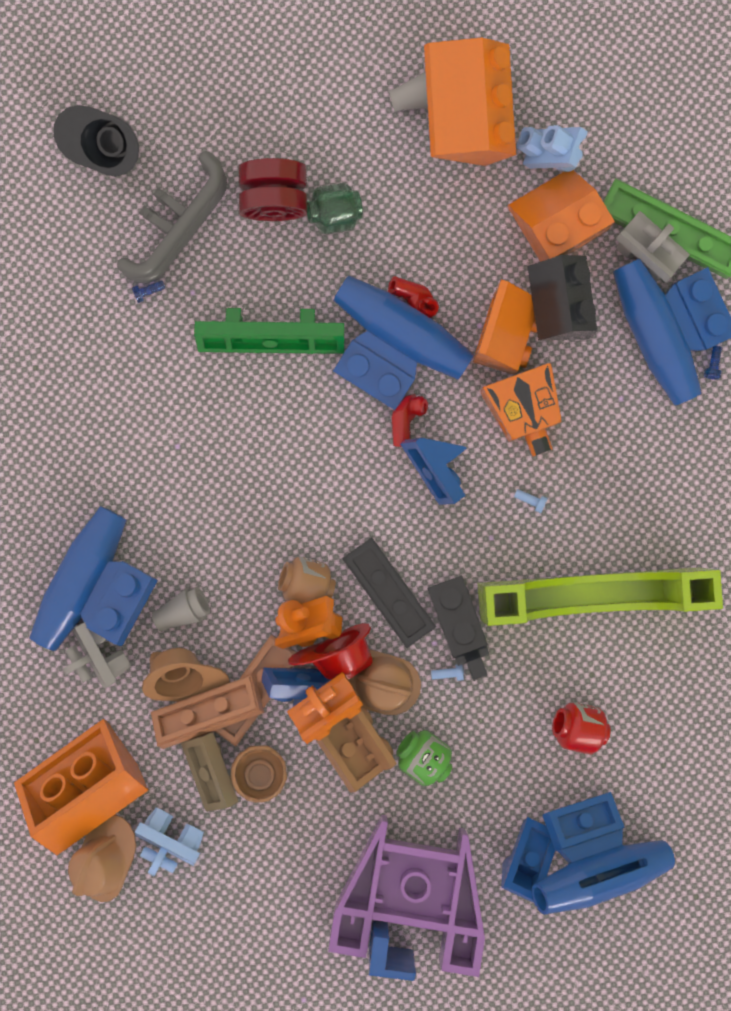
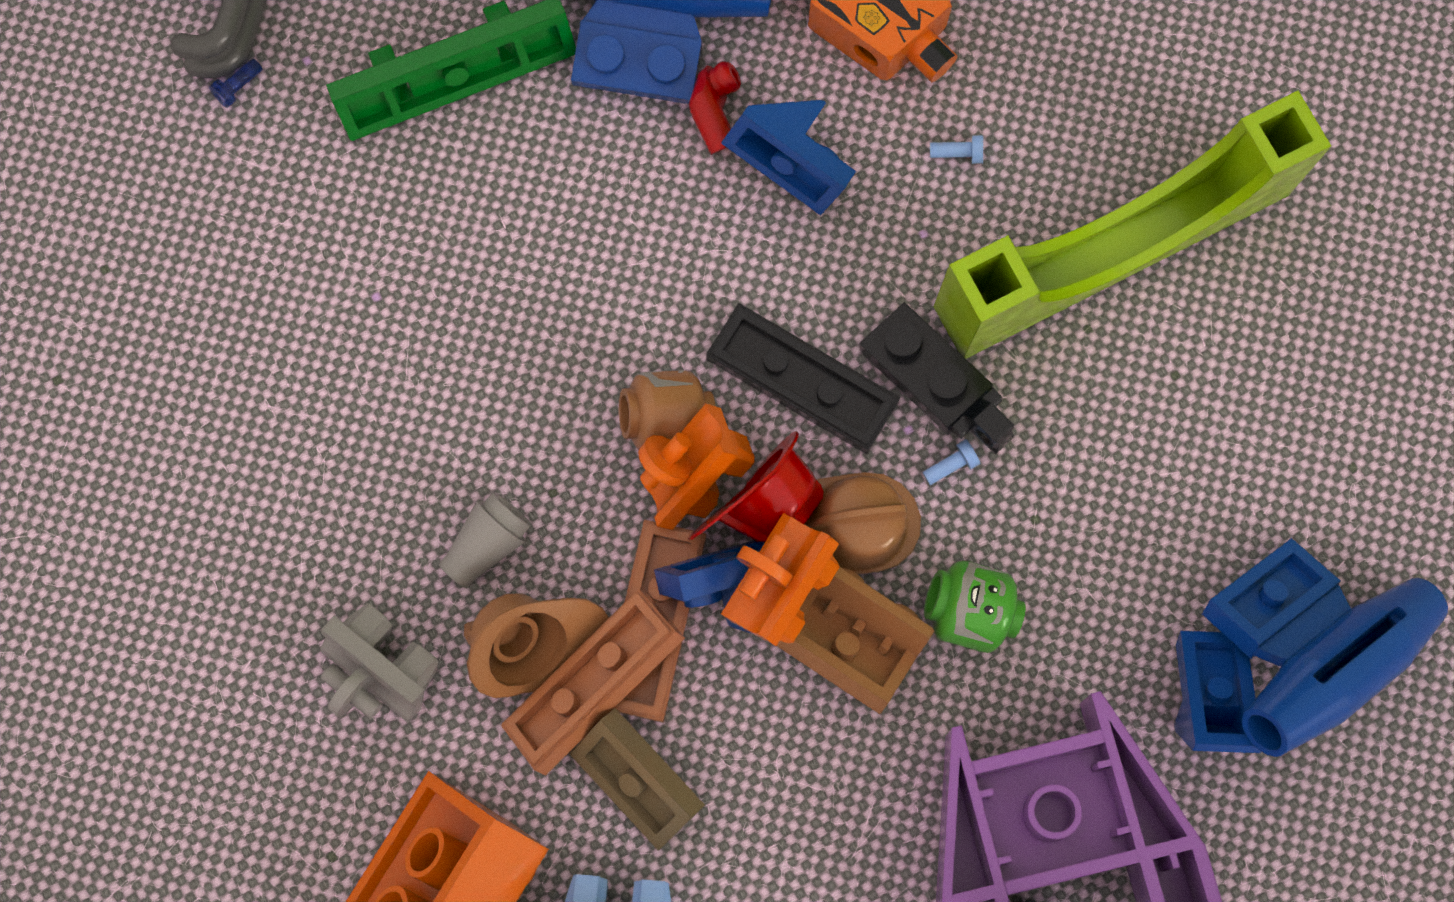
camera: 20 degrees left, 10 degrees down
(93, 587) = (327, 557): blue plate -> none
(258, 773) = (717, 744): medium nougat hair -> none
(581, 728) = (1198, 455): red head -> none

